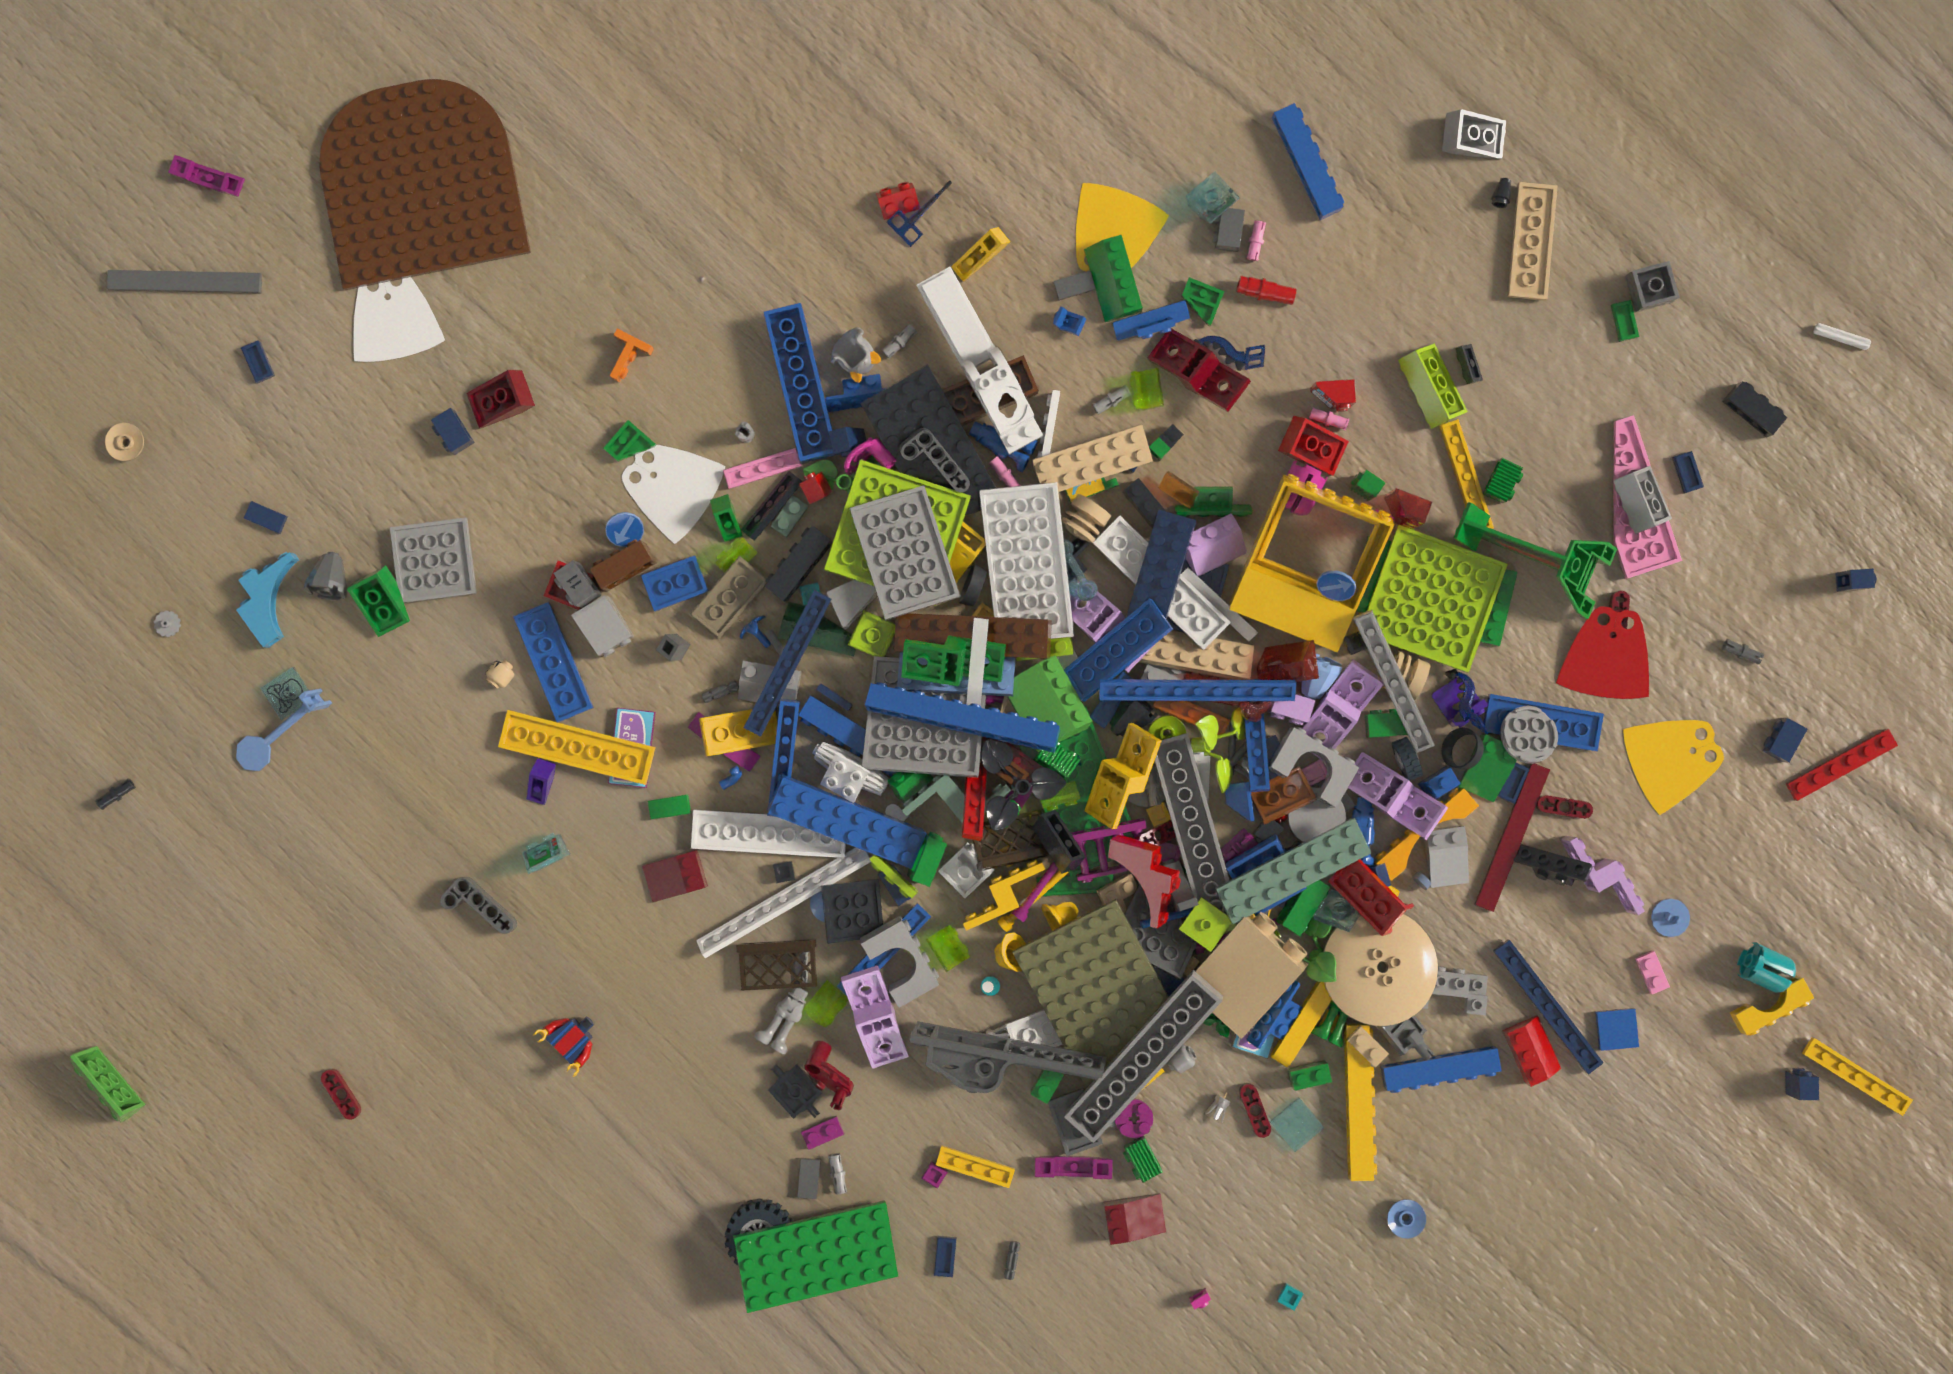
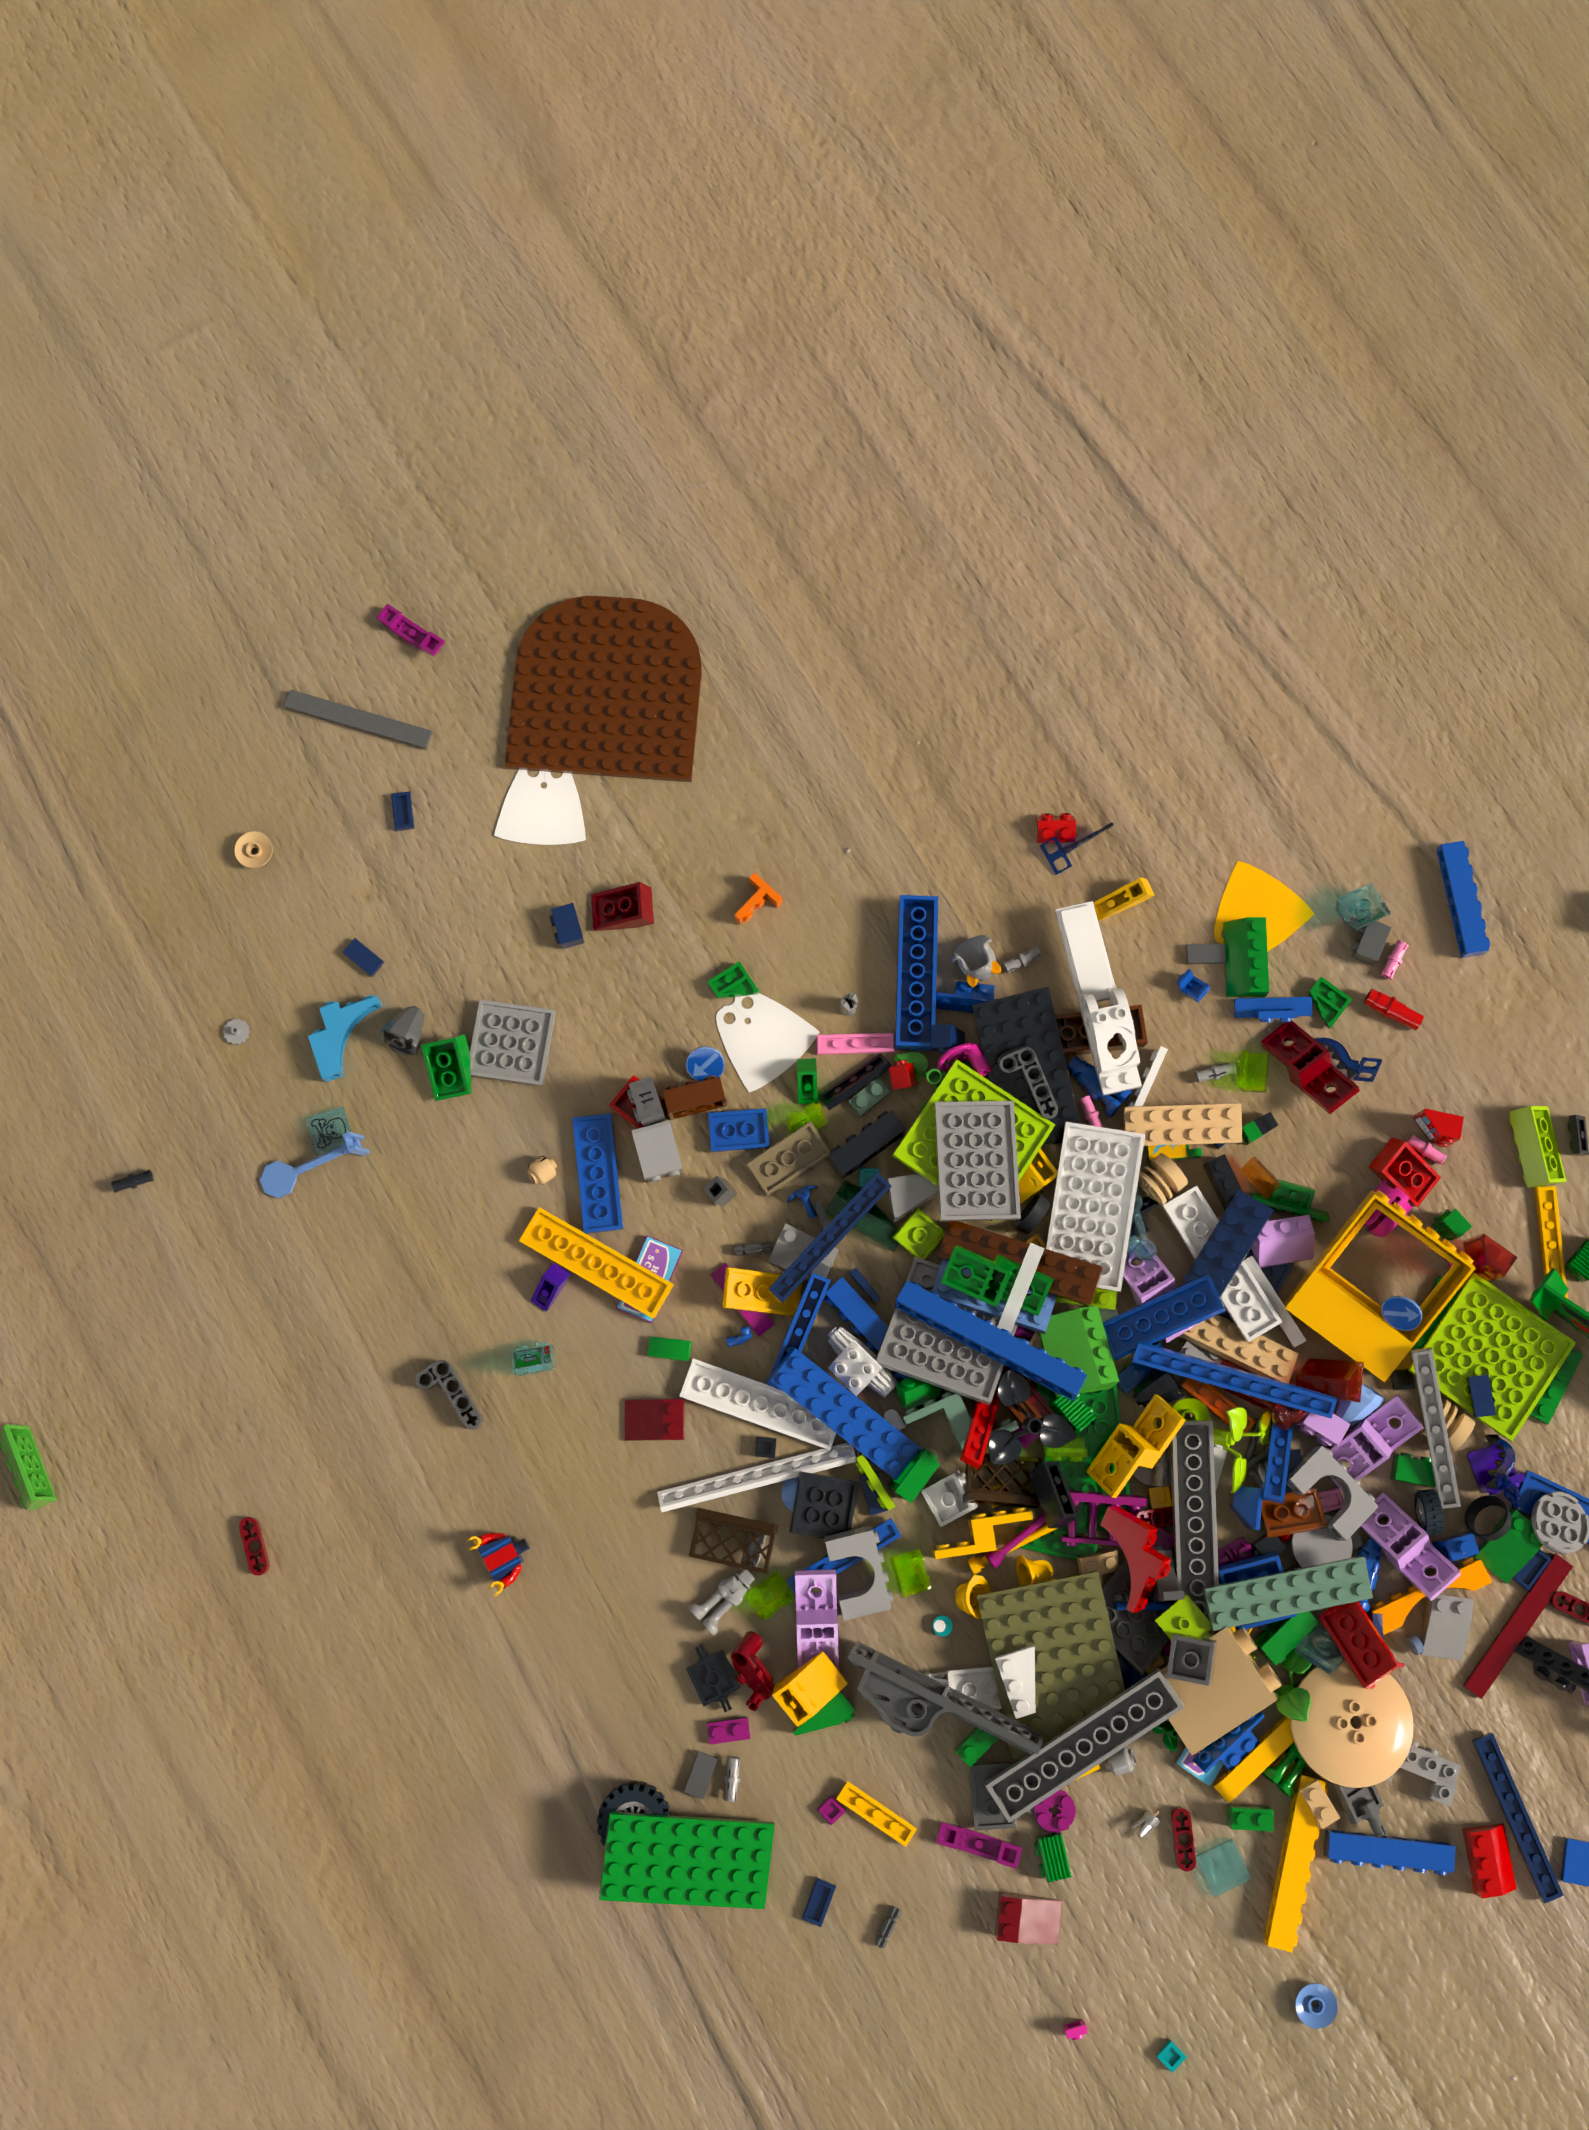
camera: 10 degrees right, 10 degrees down
(883, 1076) = (809, 1688): none -> yellow slope
(909, 1092) = (832, 1714): none -> green slope
(1070, 1015) = (1018, 1676): none -> white wing
(1218, 955) = (1191, 1659): none -> flat silver brick
(1430, 639) = (1481, 1396): none -> dark blue tile

